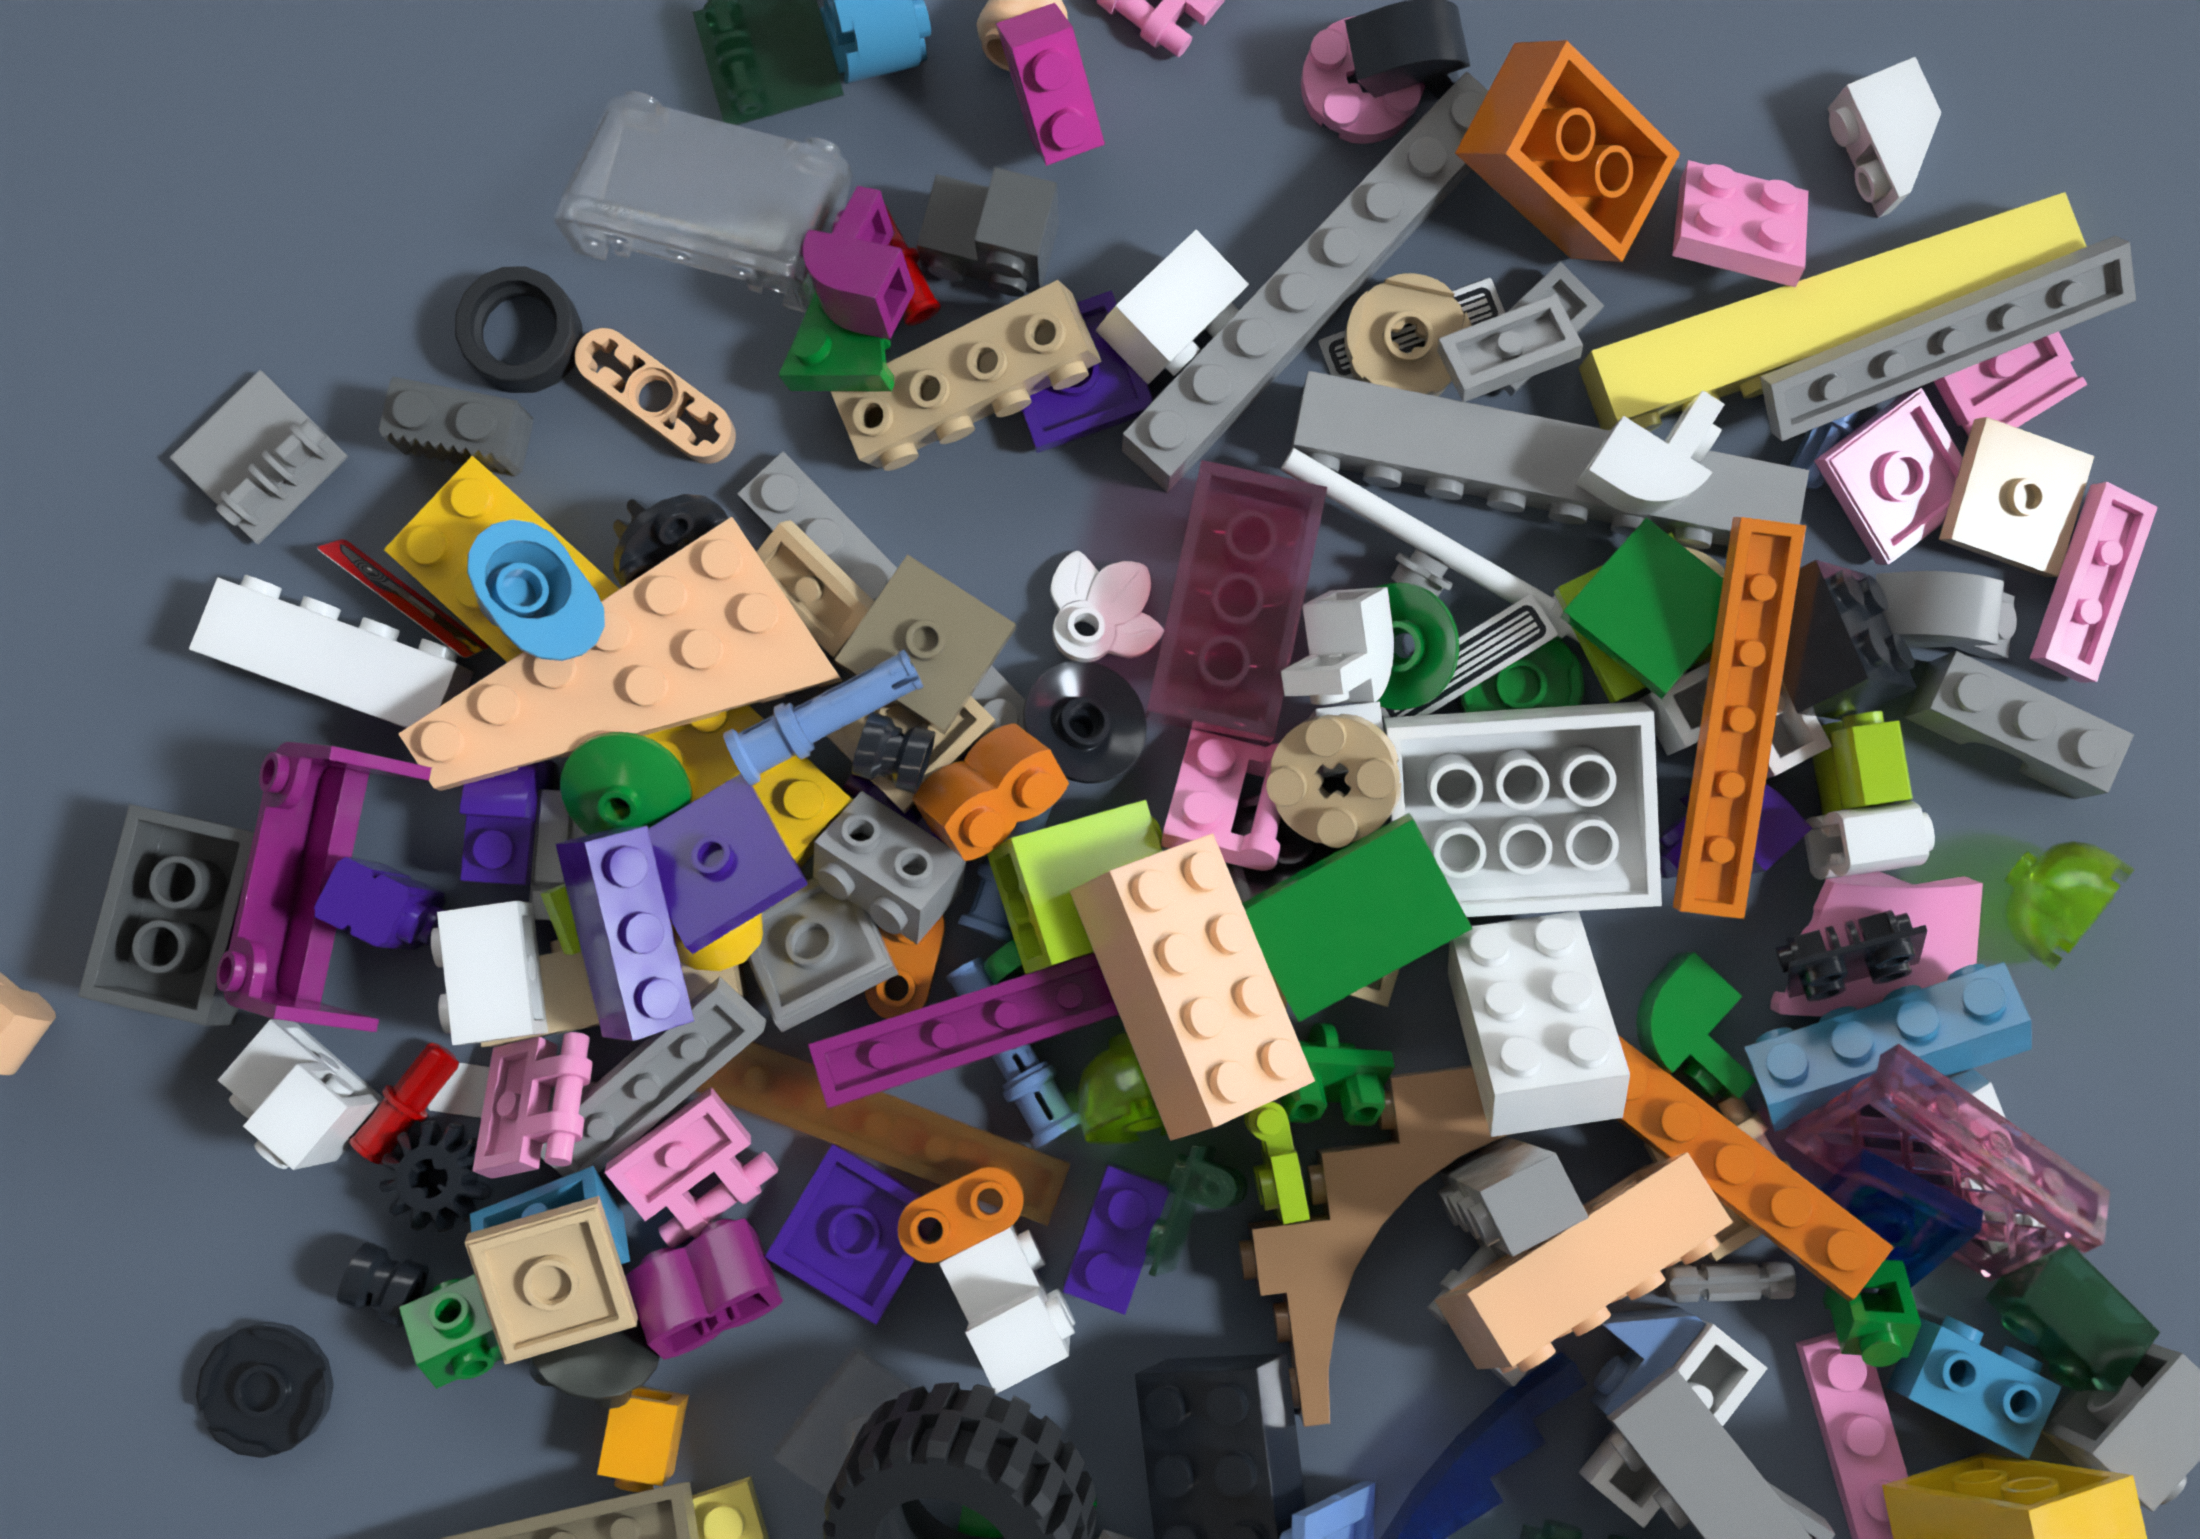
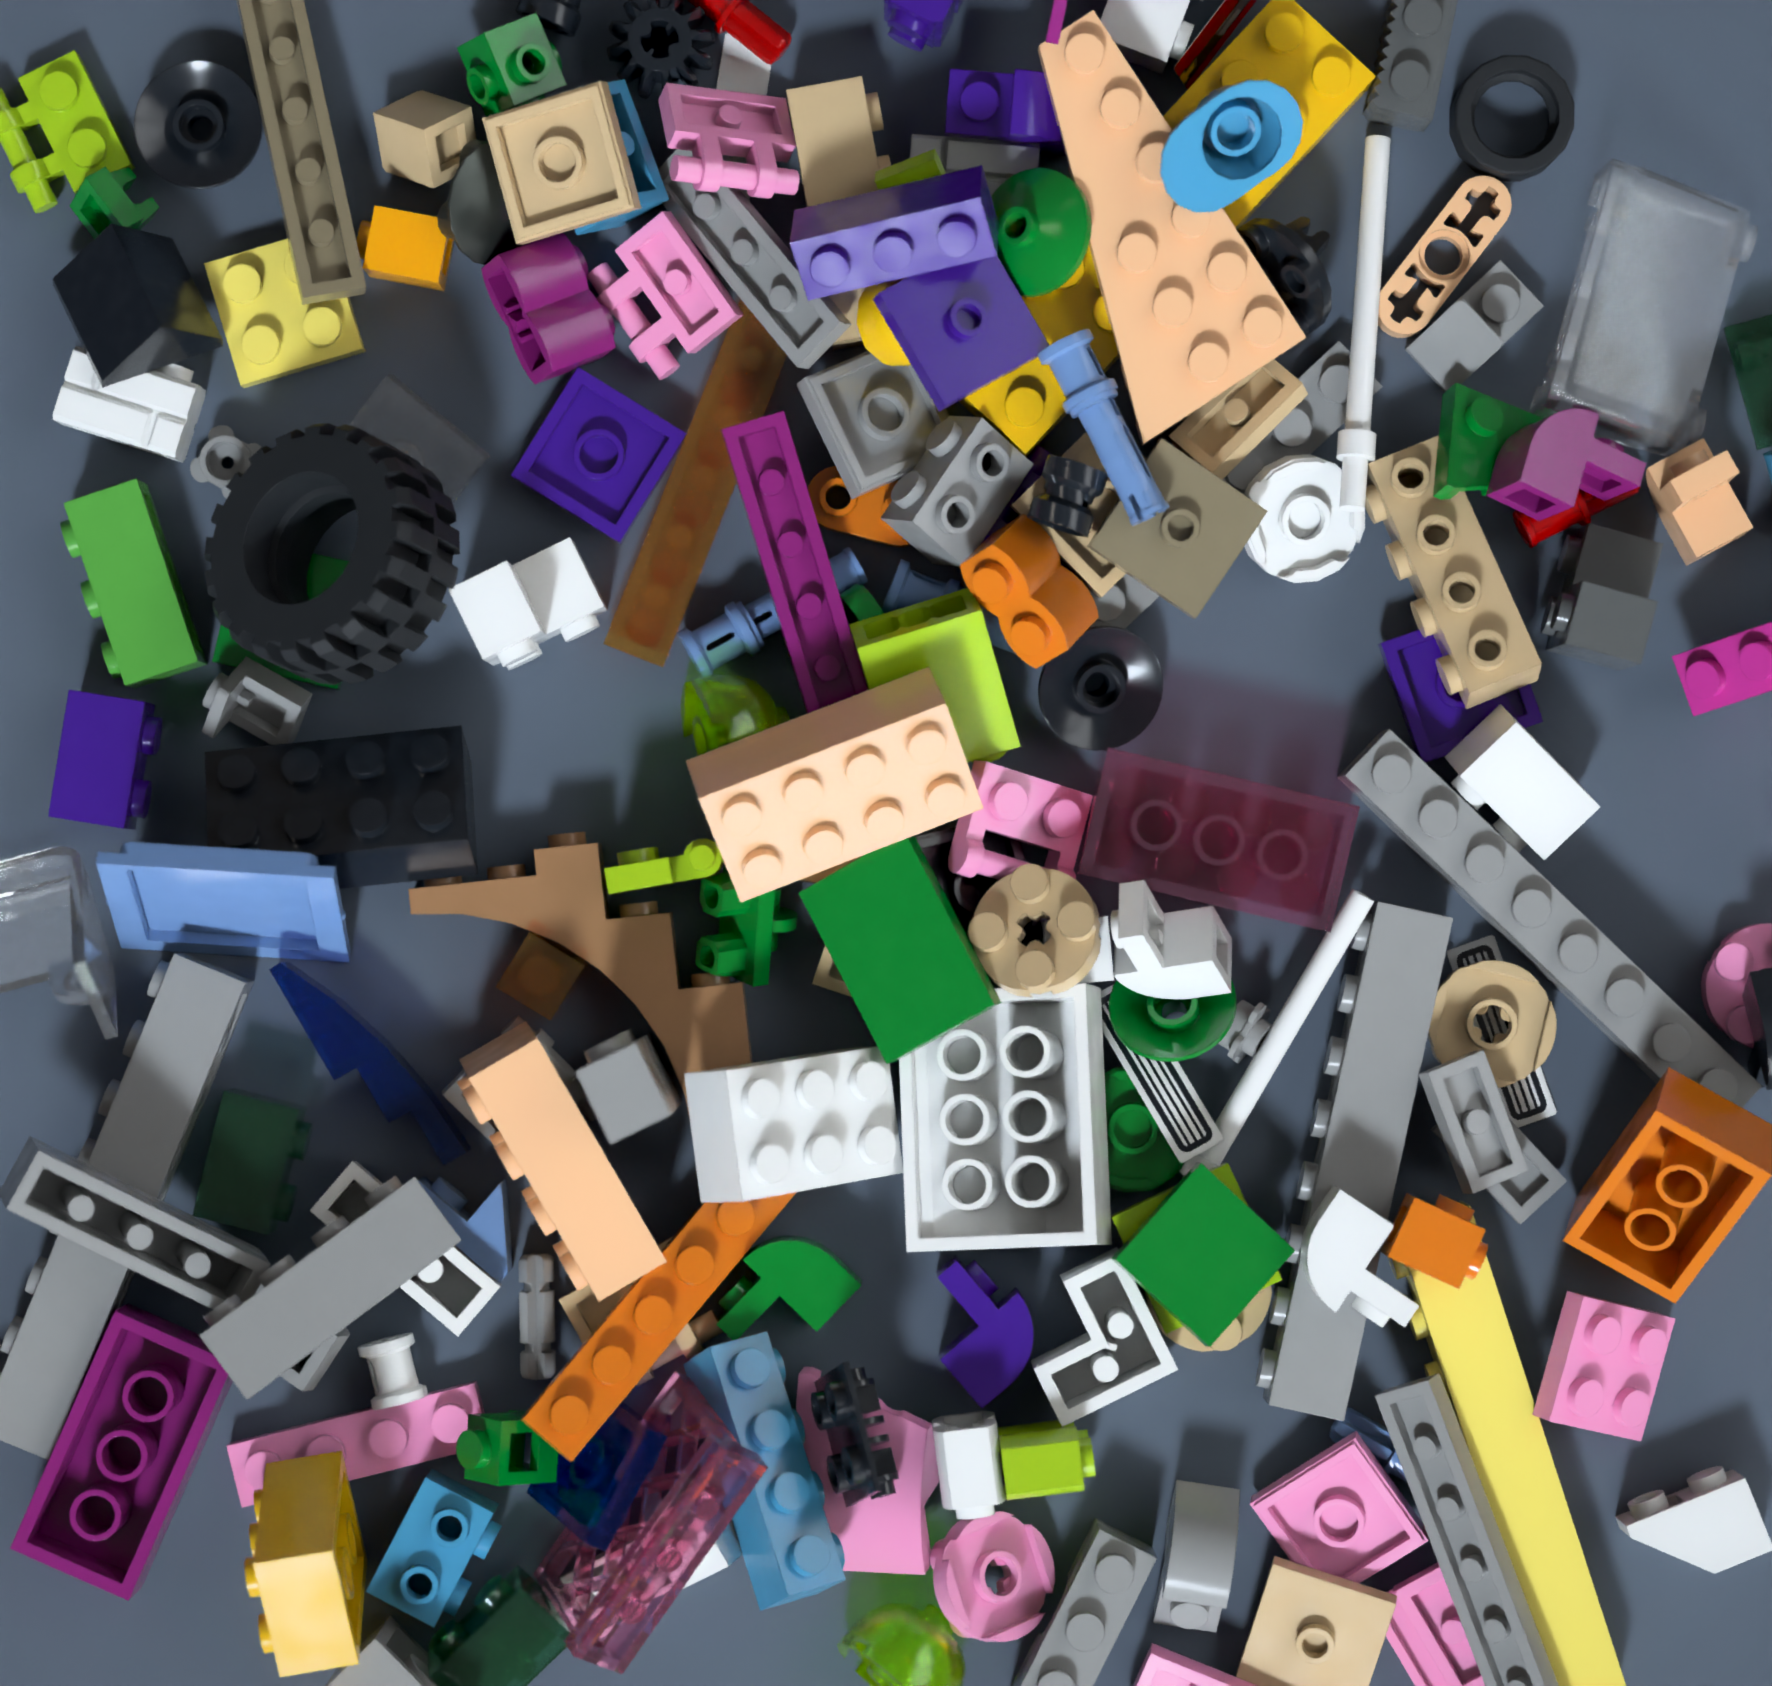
camera: 90 degrees right, 5 degrees up
(489, 973) = (857, 99): white brick -> none
(528, 1422) = (423, 137): none -> tan panel
(725, 364) = (1474, 327): none -> light grey slope
(838, 470) = (1356, 442): none -> white bar
(893, 145) = (1697, 500): none -> light nougat brick
(913, 515) = (1304, 529): none -> white tile
(960, 1215) = (616, 558): orange plate -> none
(1107, 601) = (1223, 714): white plate -> none
(1115, 1237) = (591, 710): dark purple brick -> none
(1194, 1181) = (643, 785): clear green hinge -> none
(1389, 1285) = (542, 975): none -> clear orange brick
(1631, 376) = (1437, 1239): none -> orange brick
(1738, 717) = (1090, 1330): orange plate -> none
(1794, 1431) = (392, 1371): none -> white bush
(1841, 646) = (1167, 1432): black brick -> none
(1985, 847) = (960, 1577): none -> bright pink plate

